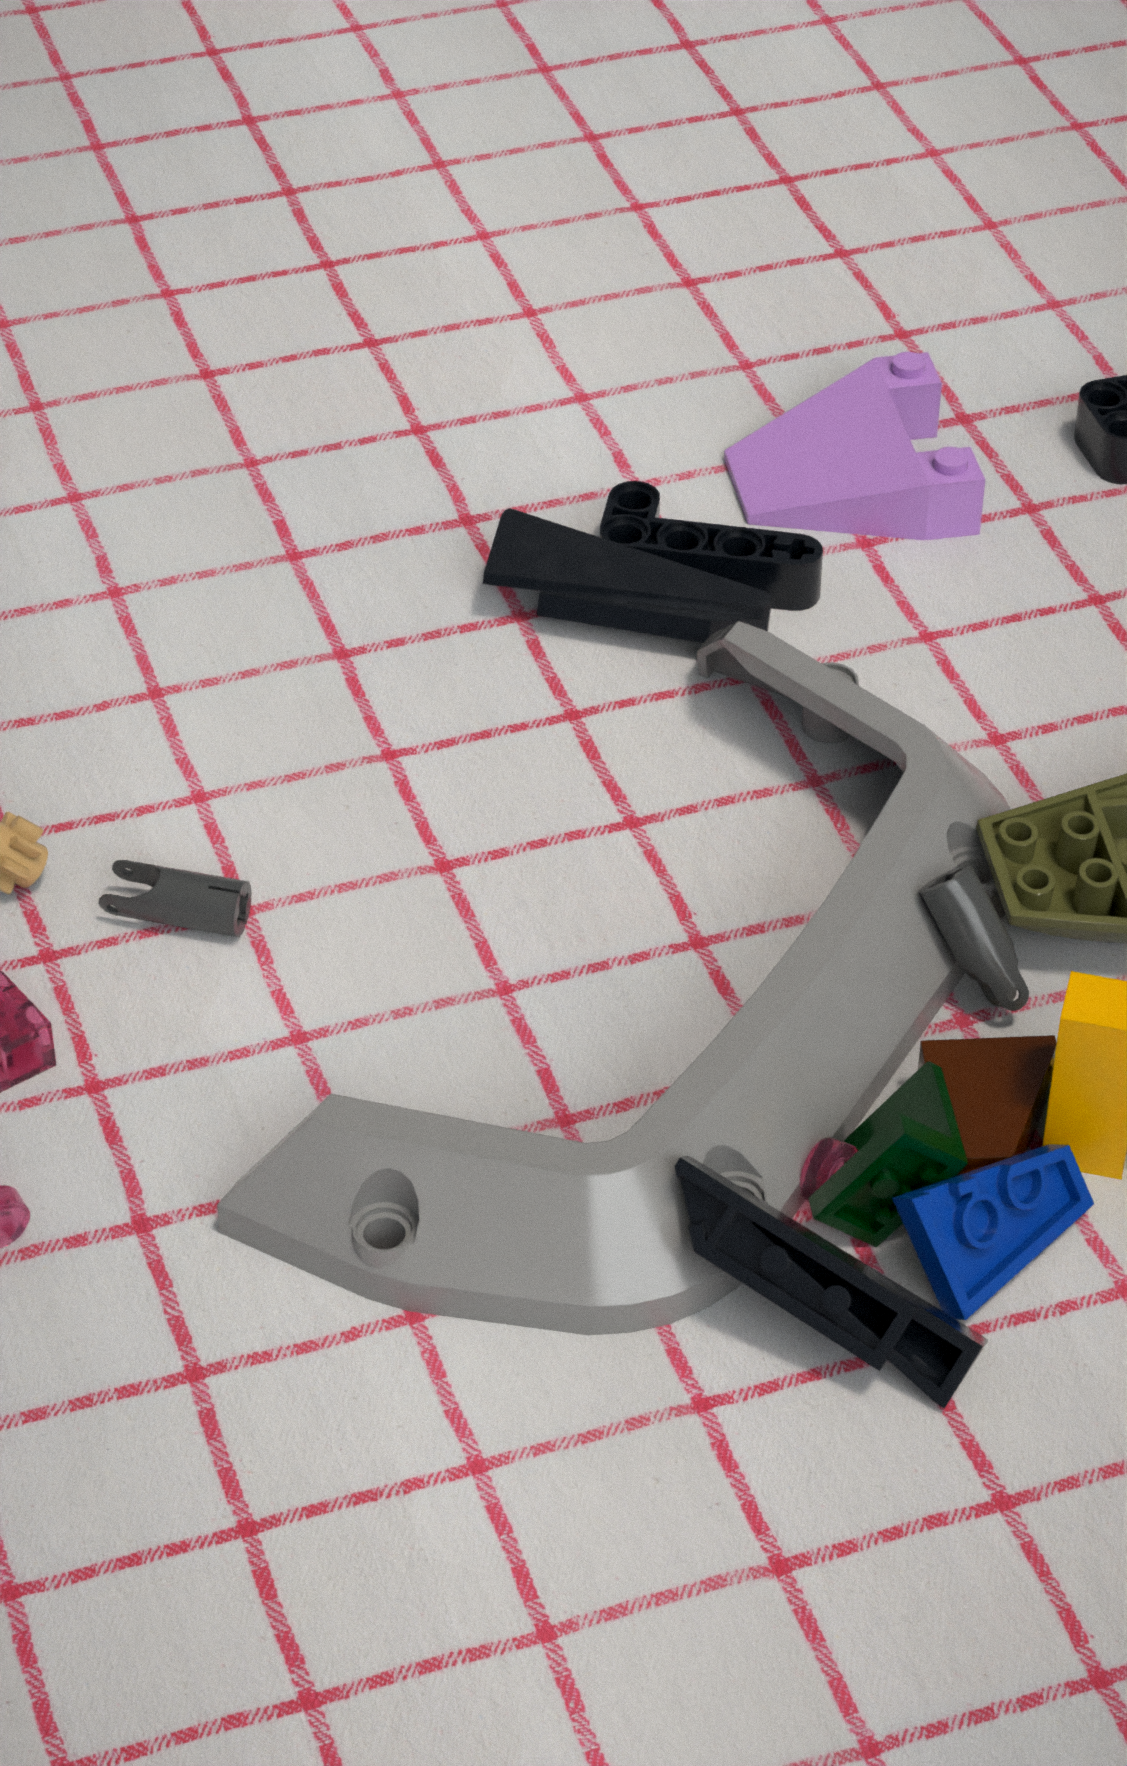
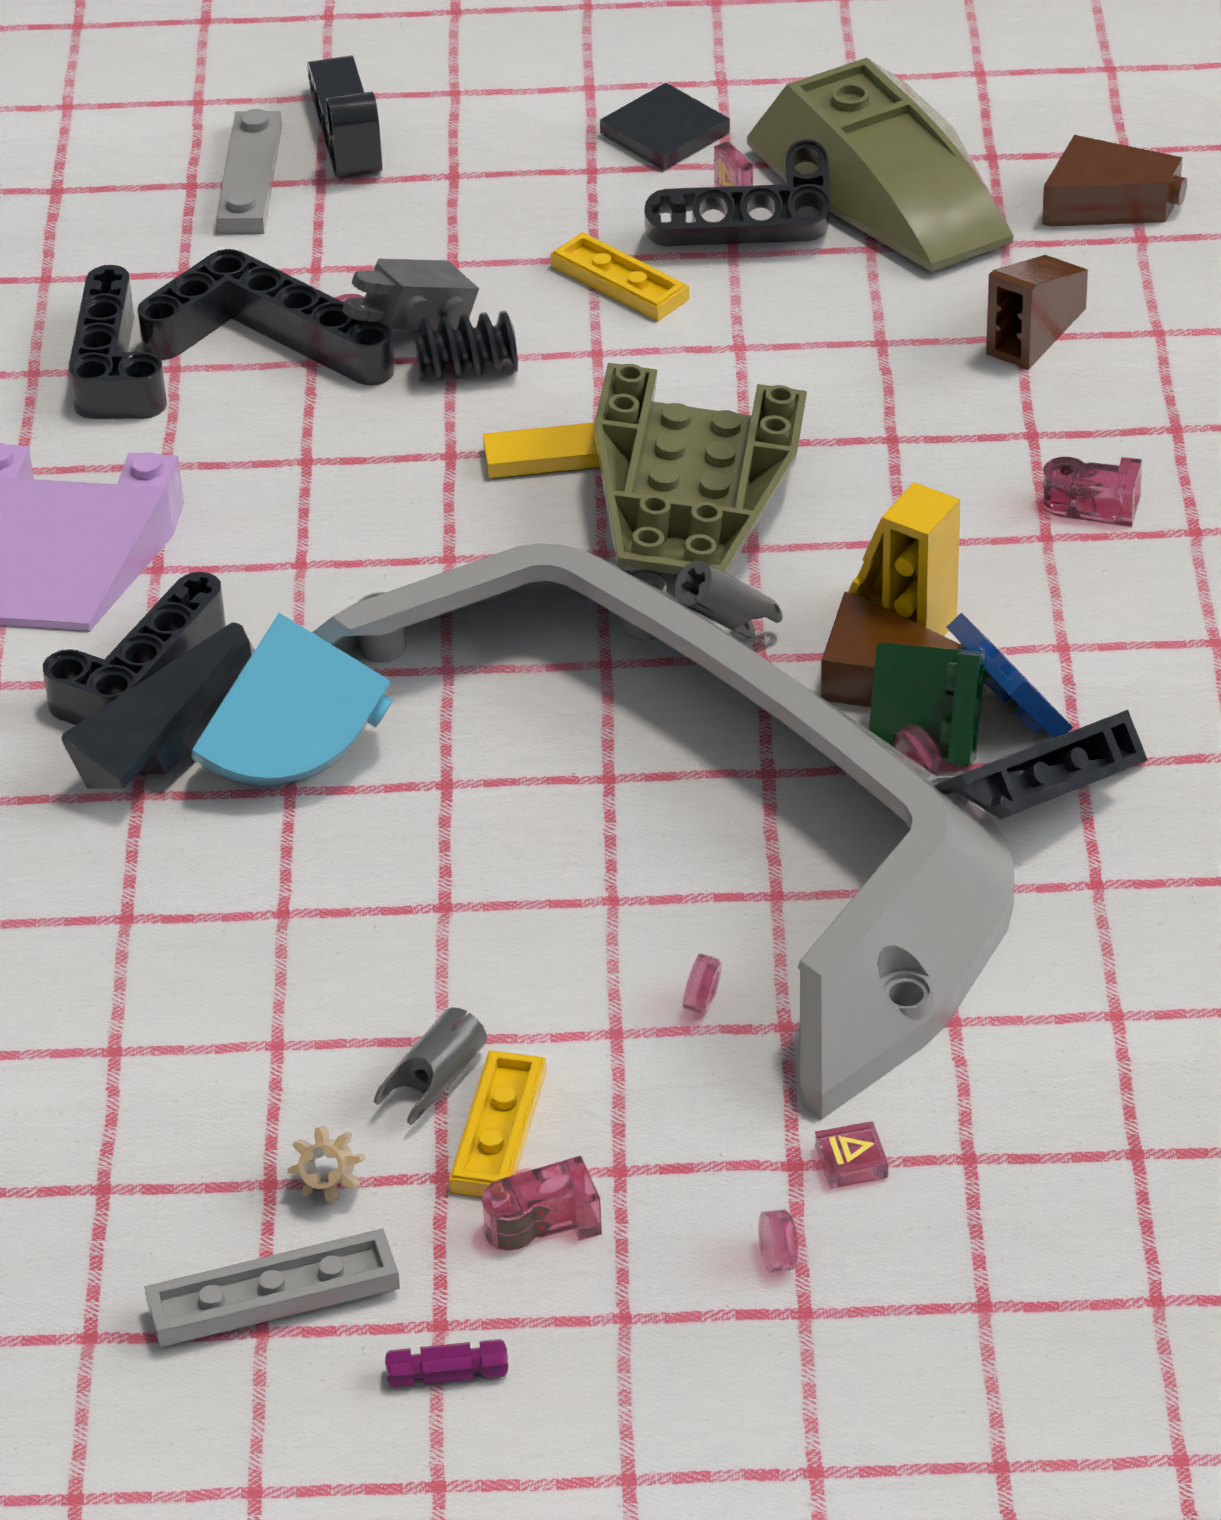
camera: 70 degrees left, 0 degrees up
(125, 974) = (497, 1121): none -> yellow tile
(157, 1262) = (851, 1154): none -> clear pink tile
(371, 1073) = (702, 983): none -> clear pink tile
(631, 649) = (291, 710): none -> medium azure brick

